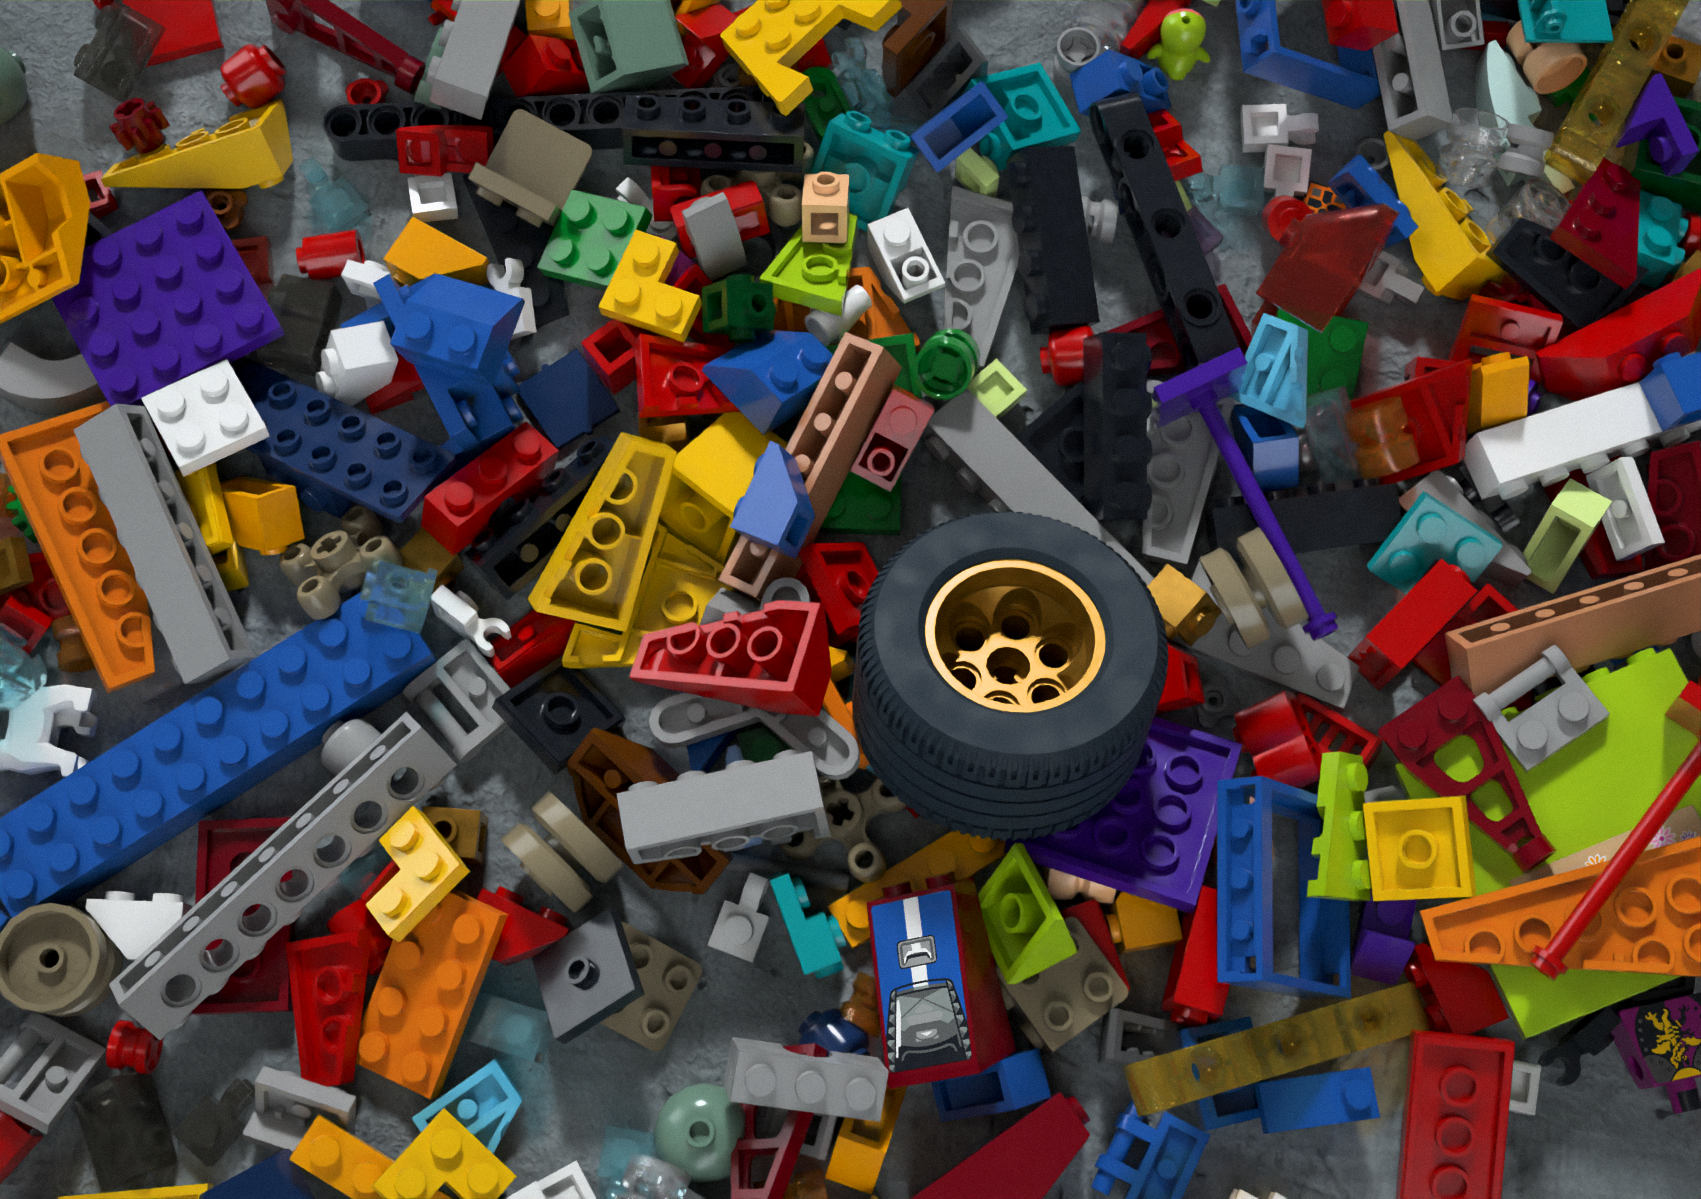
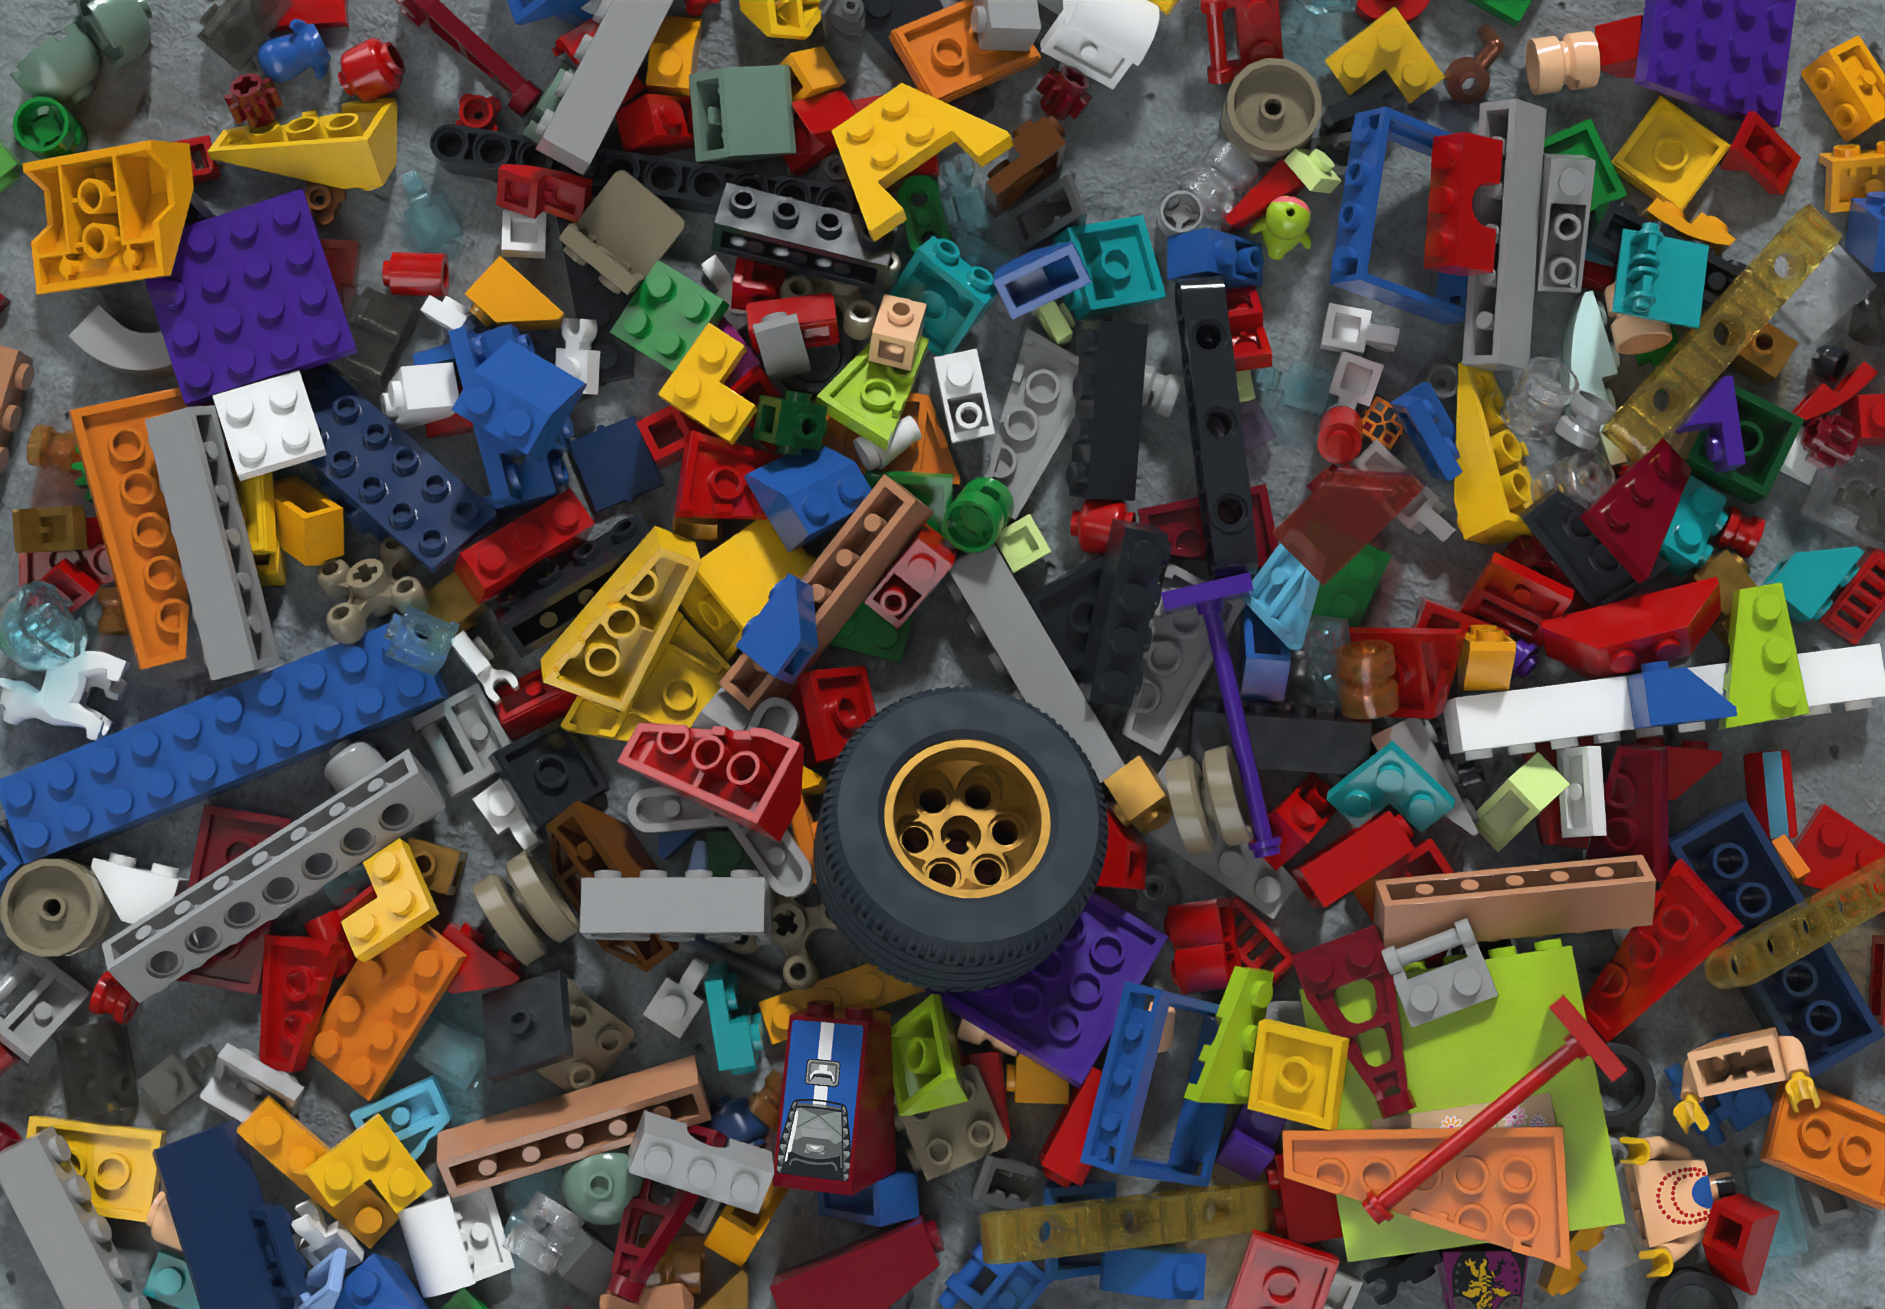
camera: 10 degrees right, 10 degrees up
(172, 77) = (291, 54): none -> blue animal
(521, 766) = (504, 814): none -> white plate
(649, 1080) = (568, 1126): none -> nougat brick
(1348, 595) = (1299, 818): none -> red slope

